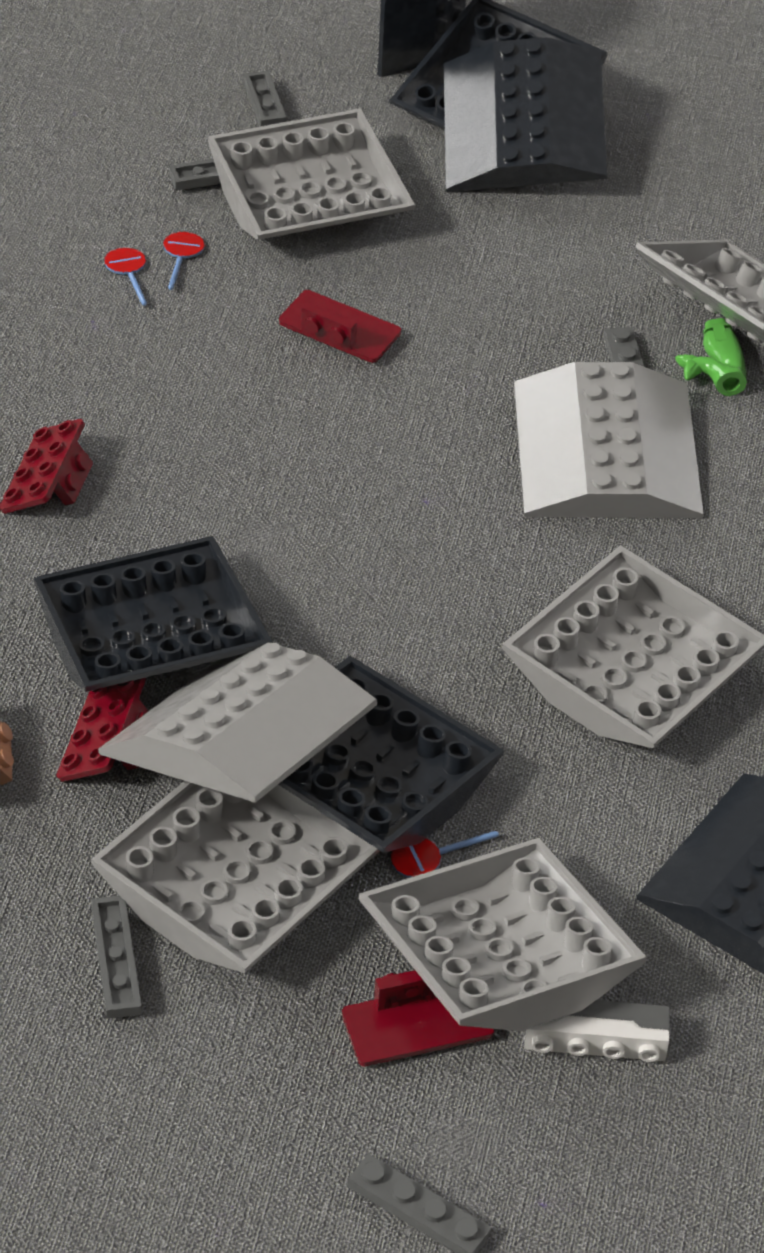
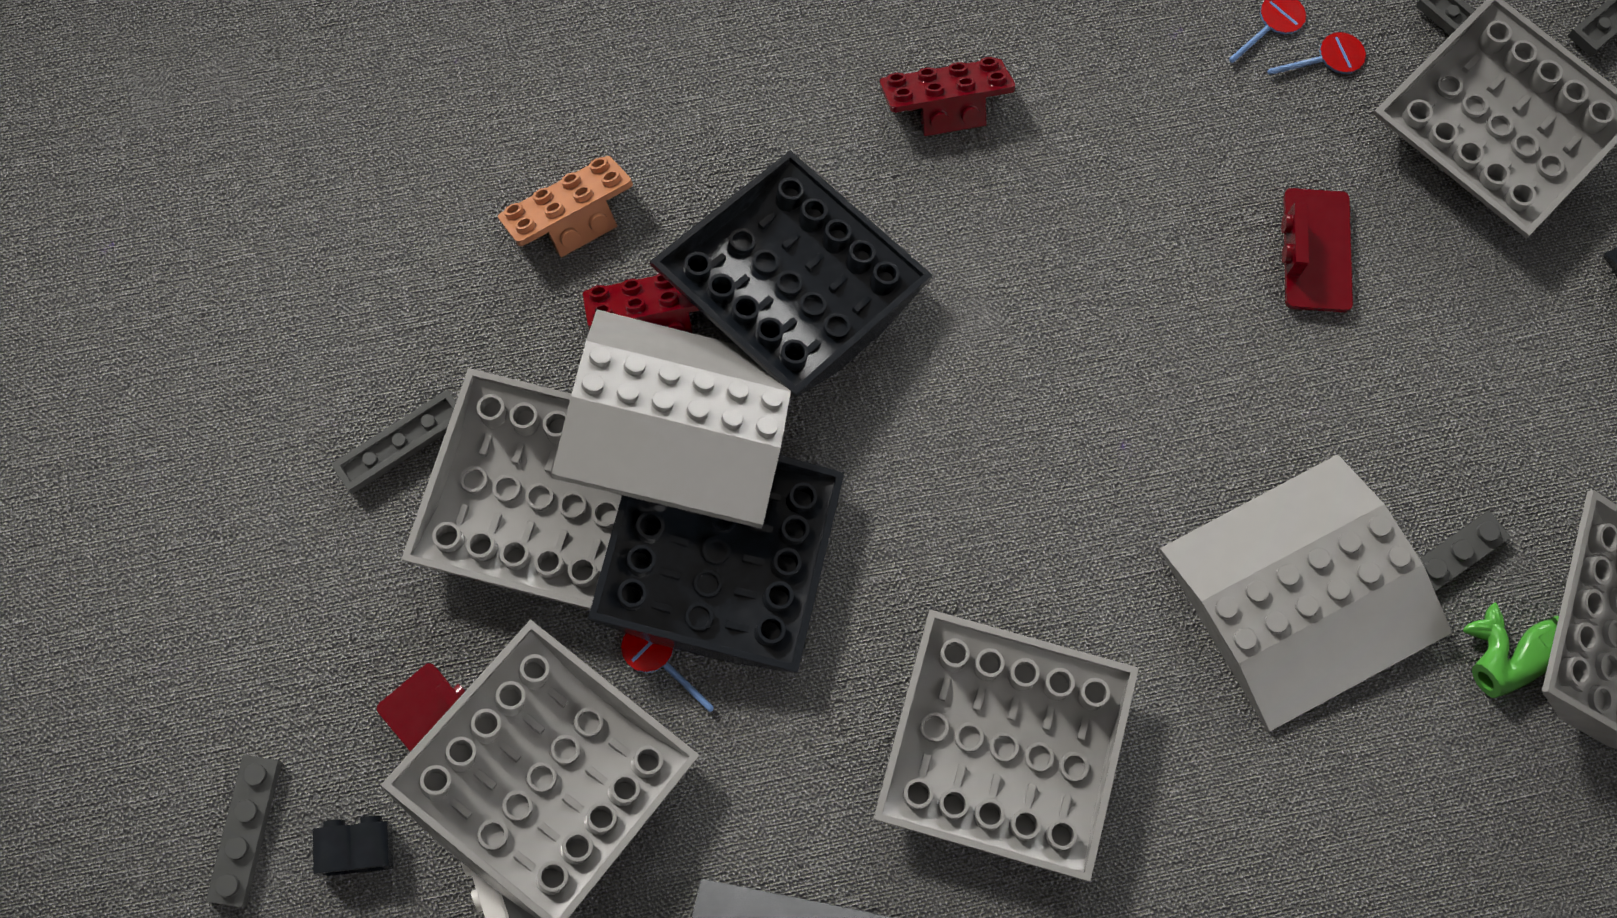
camera: 65 degrees right, 25 degrees up
(482, 1121) = (352, 848): none -> black brick

